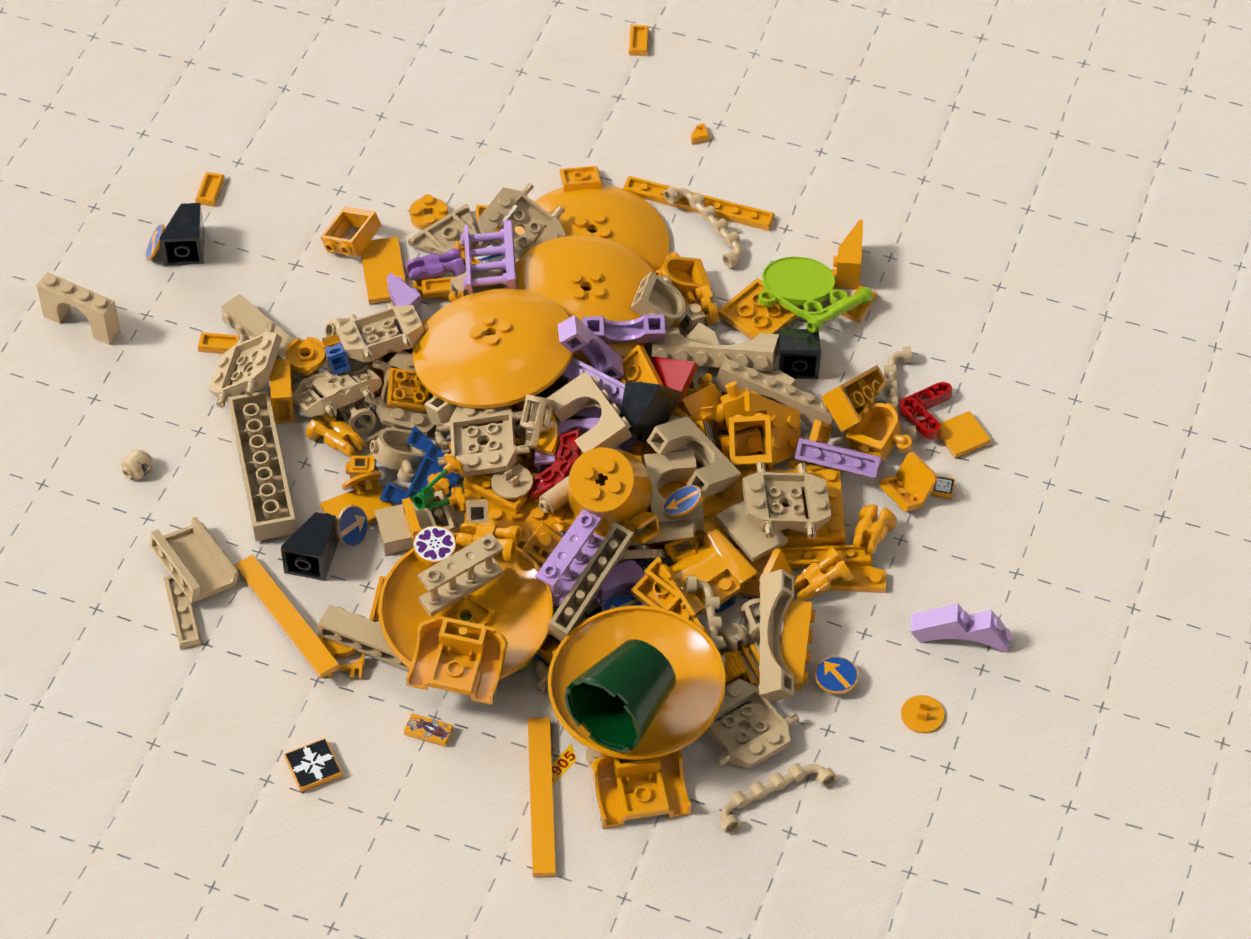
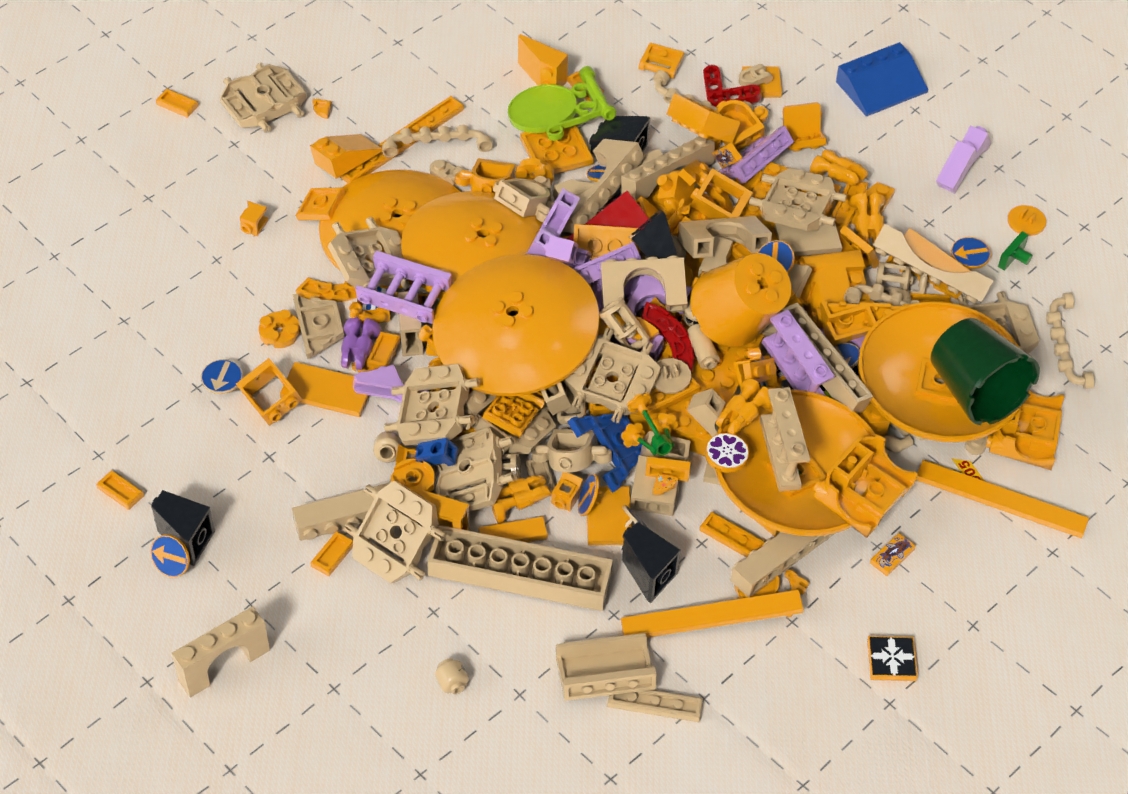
camera: 65 degrees left, 0 degrees up
(303, 450) = (521, 530): none -> light orange tile
(352, 195) = (221, 376): none -> blue piece
(398, 526) = (664, 483): none -> light orange tile
(534, 144) = (252, 218): none -> light orange window
(648, 167) = (343, 153): none -> light orange slope
(662, 90) = (280, 96): none -> tan piece
(679, 244) = (444, 170): none -> tan plate
(863, 712) = (1015, 251): none -> green tile
(938, 343) = (663, 56): none -> light orange plate
(950, 418) = (755, 75): none -> tan plate
(1032, 528) = (881, 79): none -> blue slope

